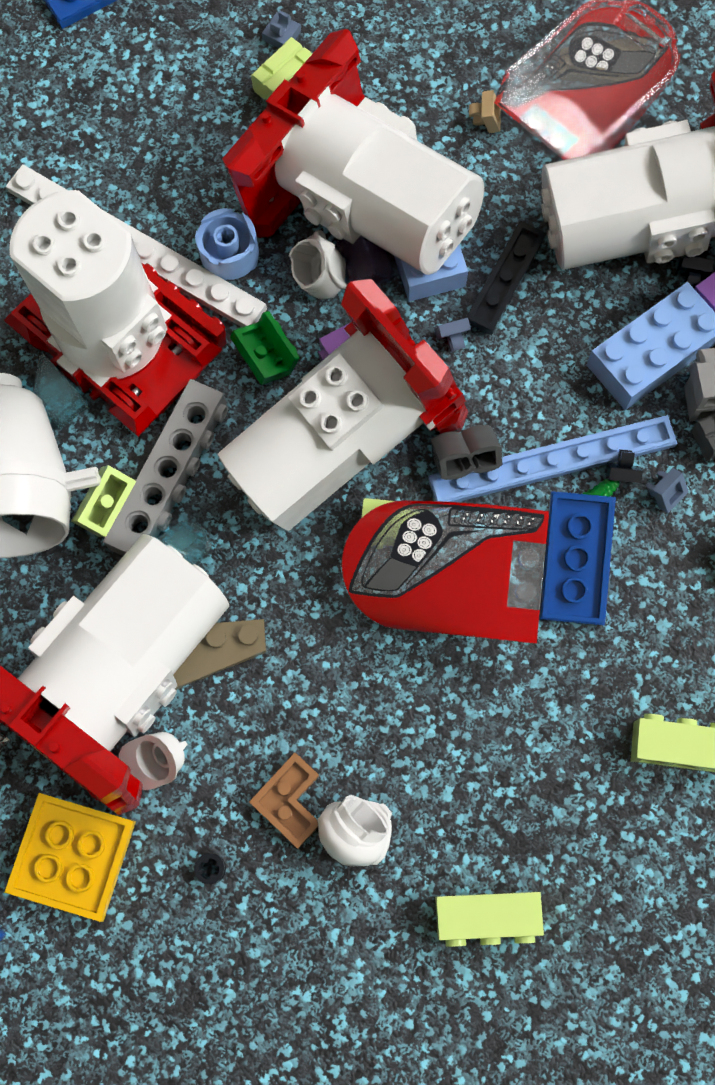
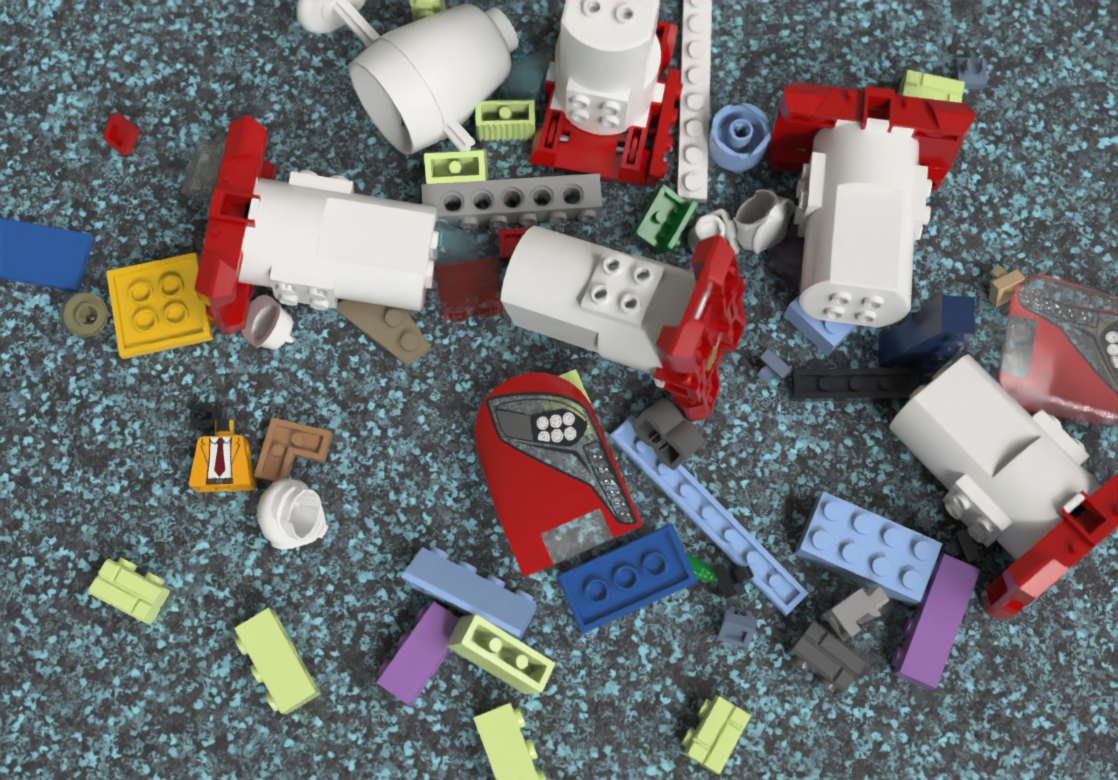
camera: 55 degrees right, 0 degrees up
(36, 937) = (83, 314): none -> olive plate
(85, 433) = (505, 120): none -> yellowish green brick
(209, 492) = (508, 241): none -> red plate
(234, 550) = (469, 289): none -> clear red brick
(265, 871) = (222, 461): none -> light orange torso
(302, 321) = (712, 225): none -> white piece
(343, 1028) = (130, 591): none -> yellowish green brick
(508, 185) = (930, 335): none -> dark blue wedge
(521, 701) = (468, 592): none -> light blue slope
(550, 777) = (418, 654): none -> medium lavender brick
(593, 702) = (500, 654): none -> yellowish green brick

